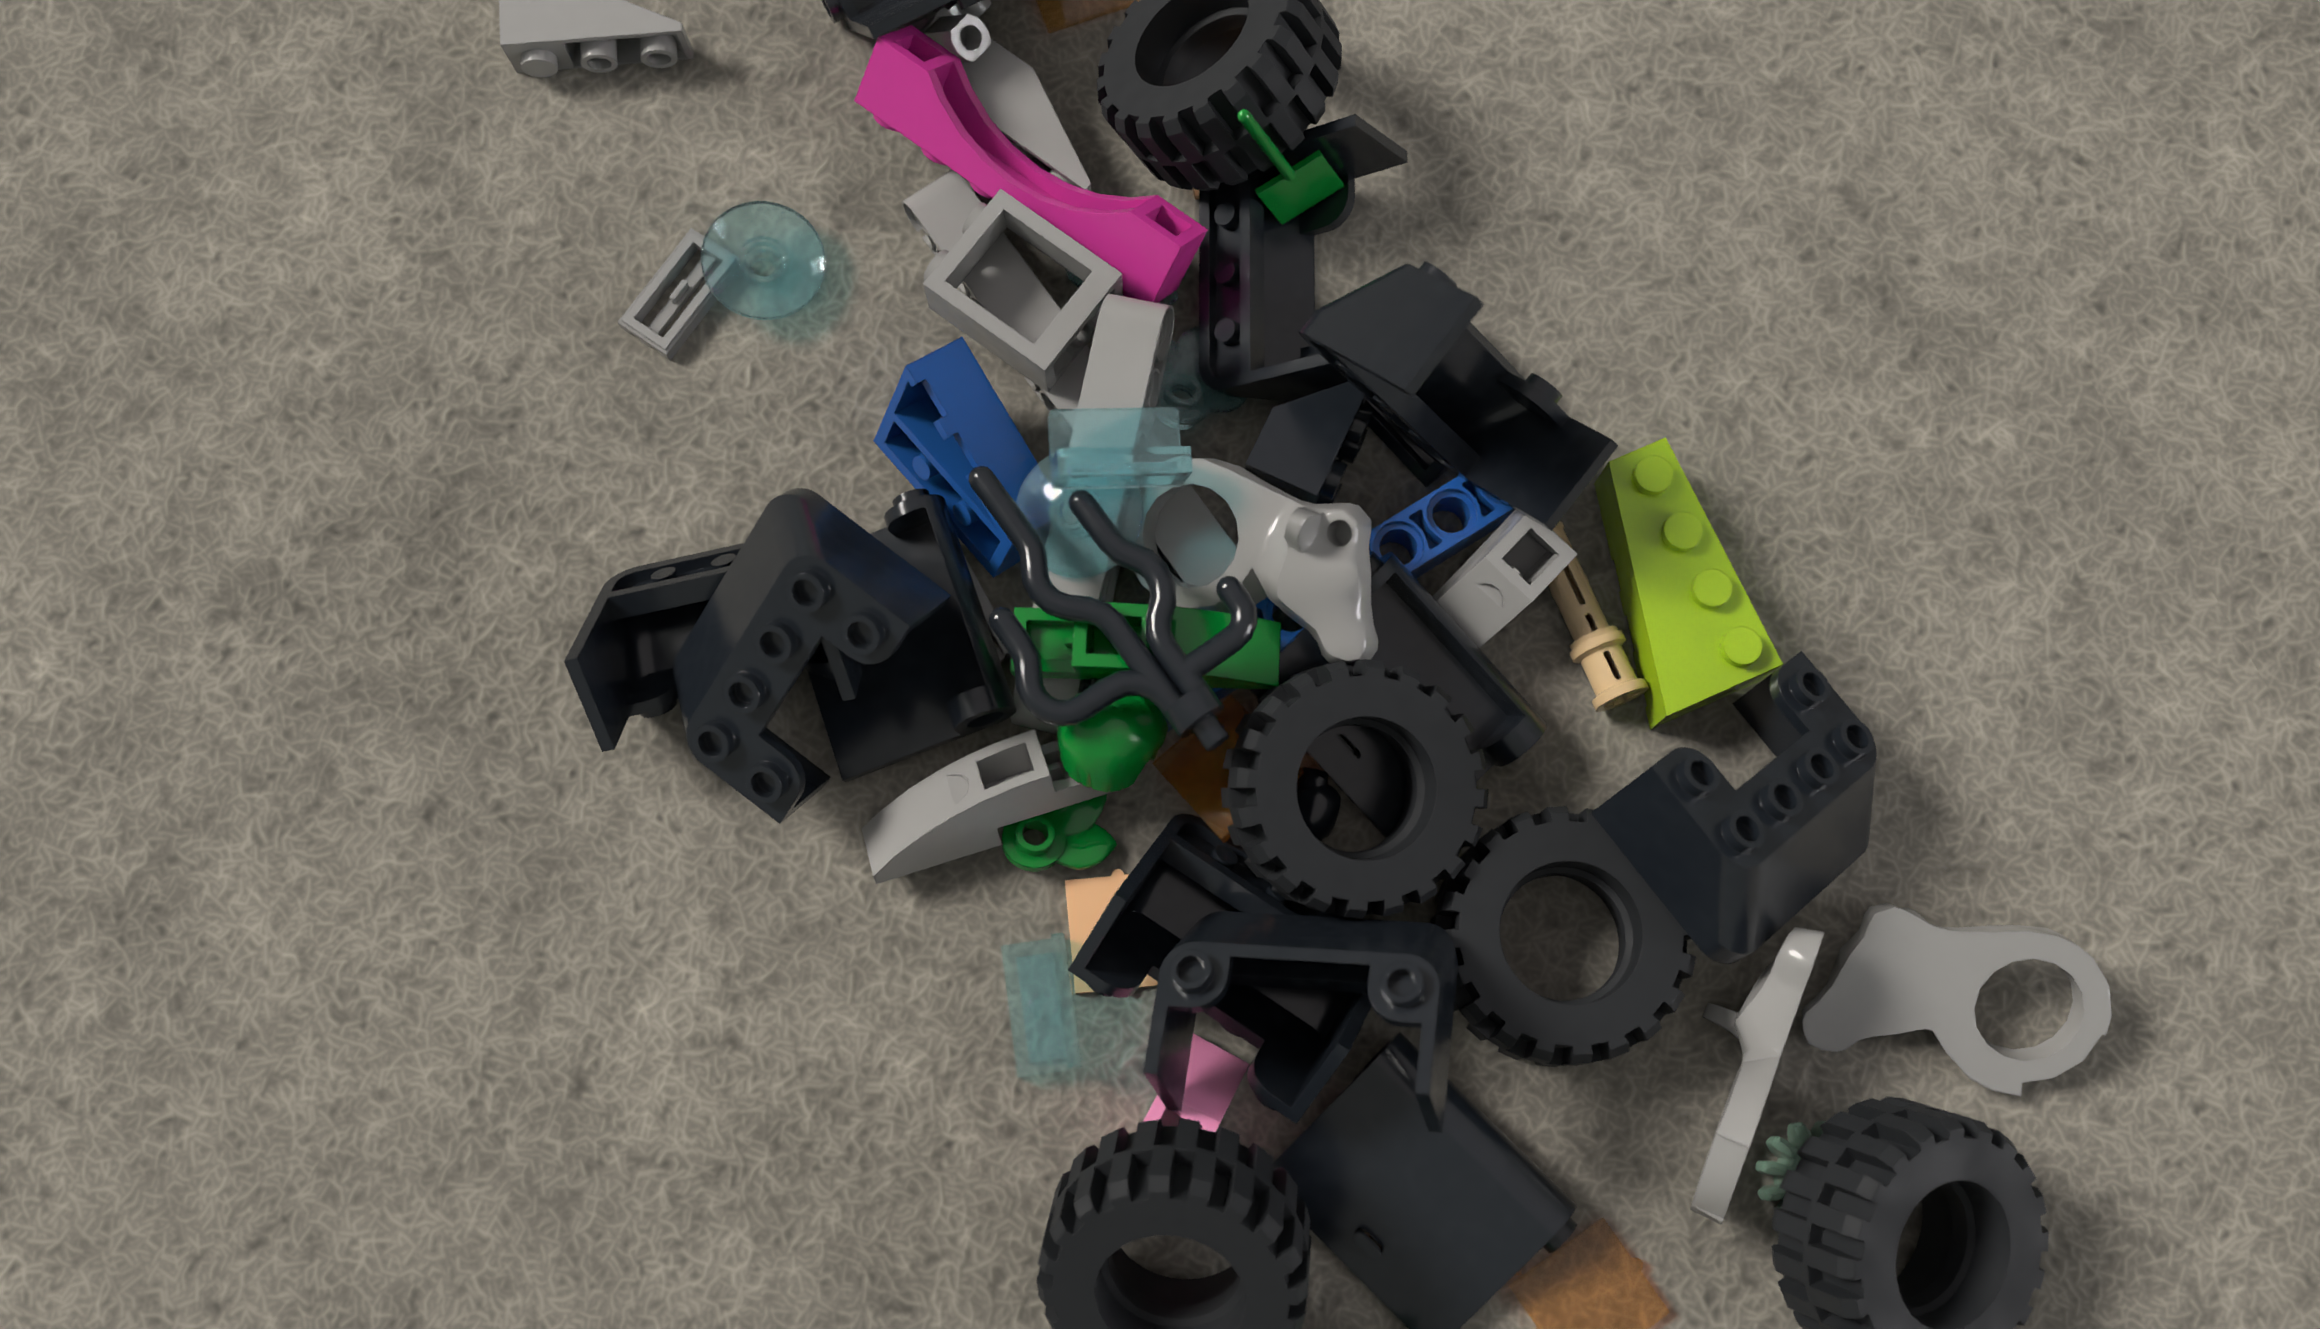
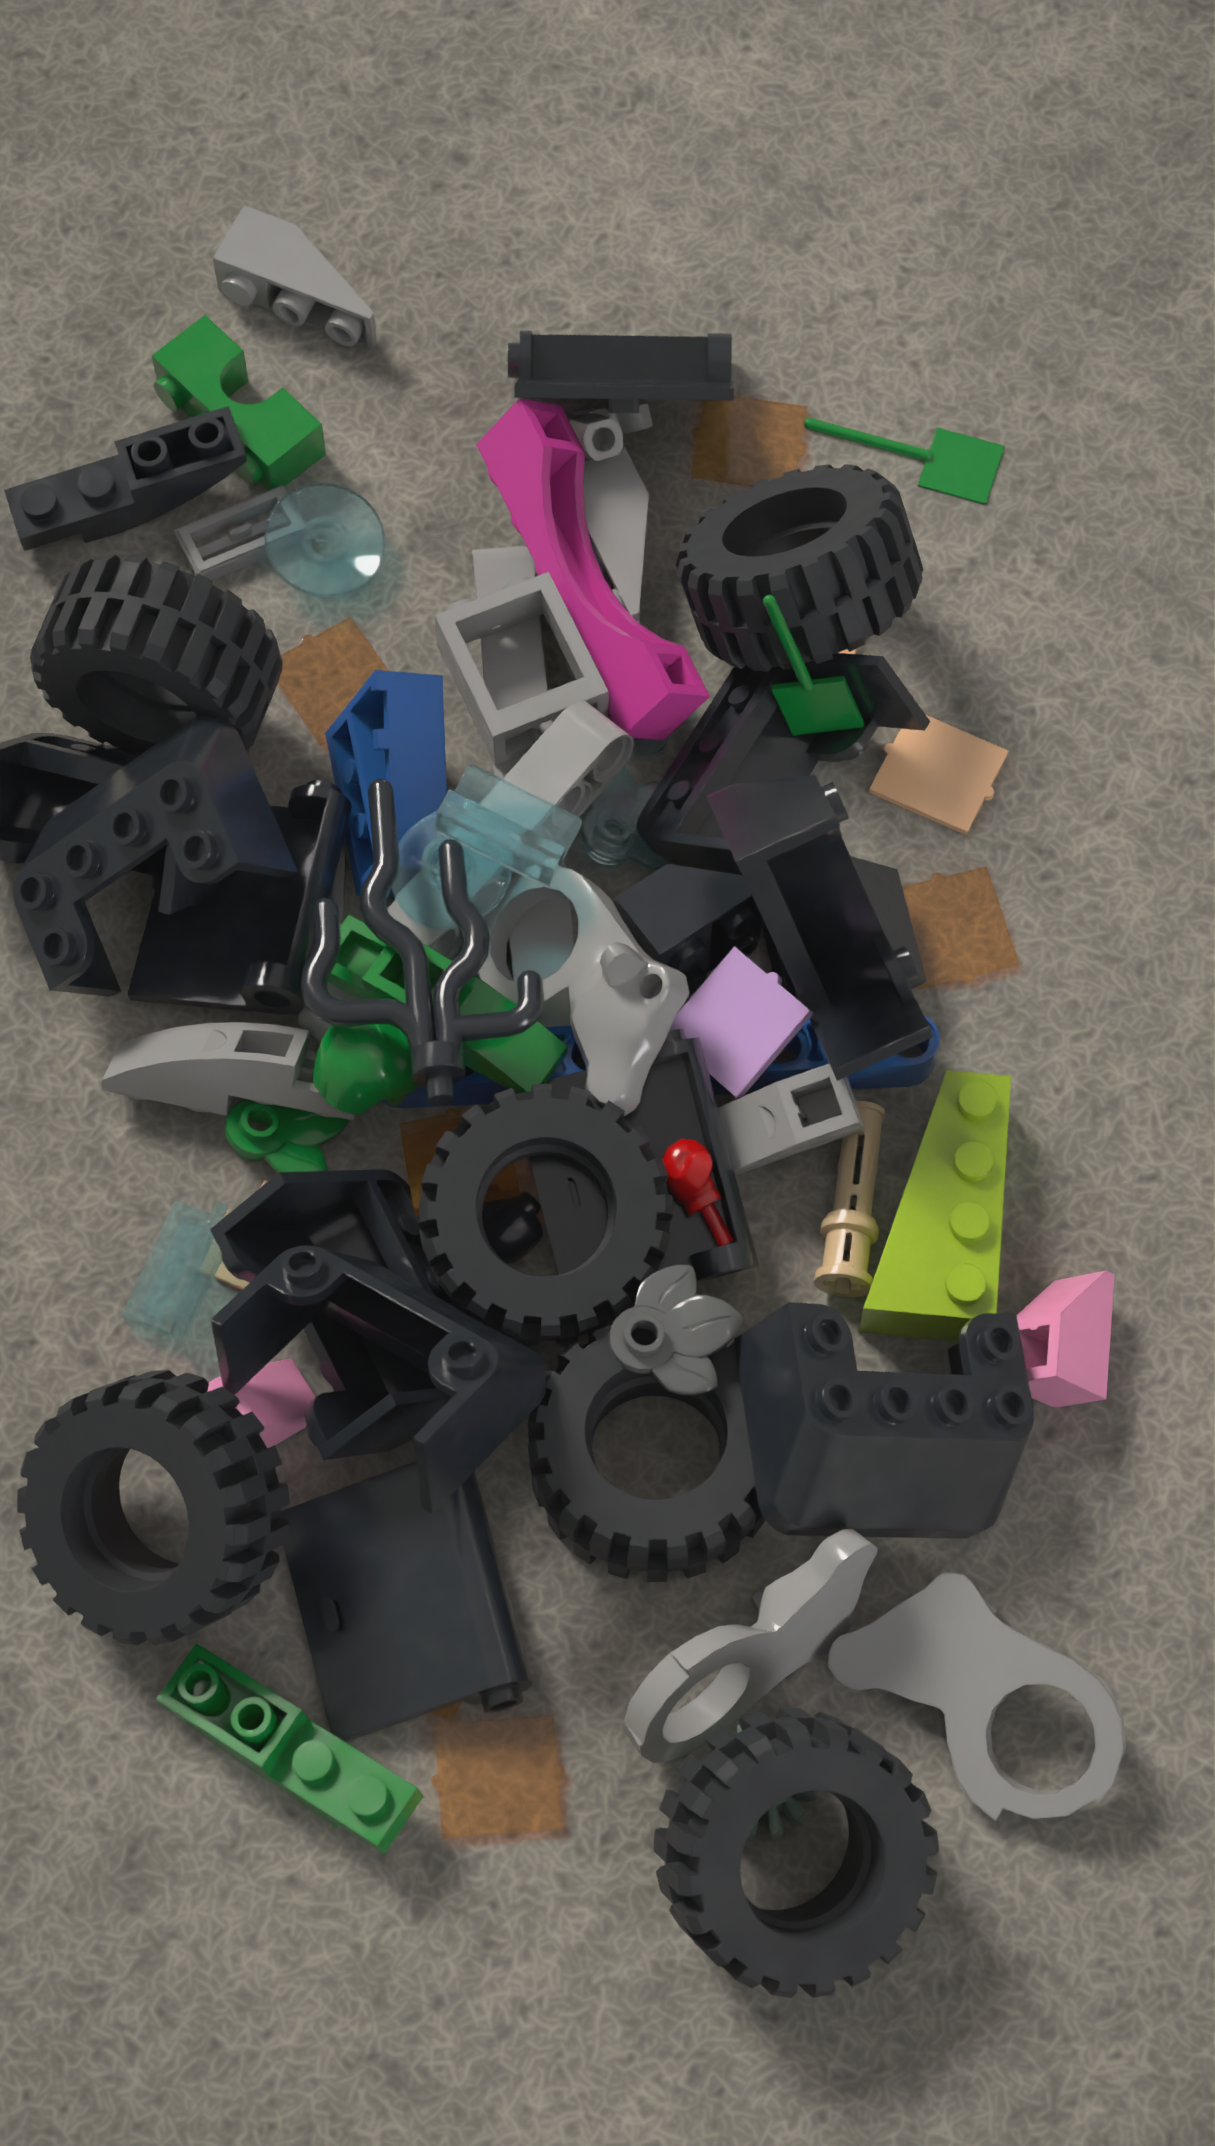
camera: 30 degrees right, 10 degrees down
(555, 302) = (142, 482): none -> black slope
(651, 193) = (201, 374): none -> green arch
(687, 458) = (148, 648): none -> black tyre
(843, 385) = (327, 673): none -> clear orange piece
(1416, 513) = (741, 1021): none -> lavender piece
(1426, 196) = (939, 774): none -> light nougat piece
(1457, 677) = (692, 1185): none -> red piece
(1525, 319) = (959, 927): none -> clear orange piece
(1545, 827) = (684, 1328): none -> dark grey plate
(1837, 635) = (1068, 1339): none -> bright pink slope

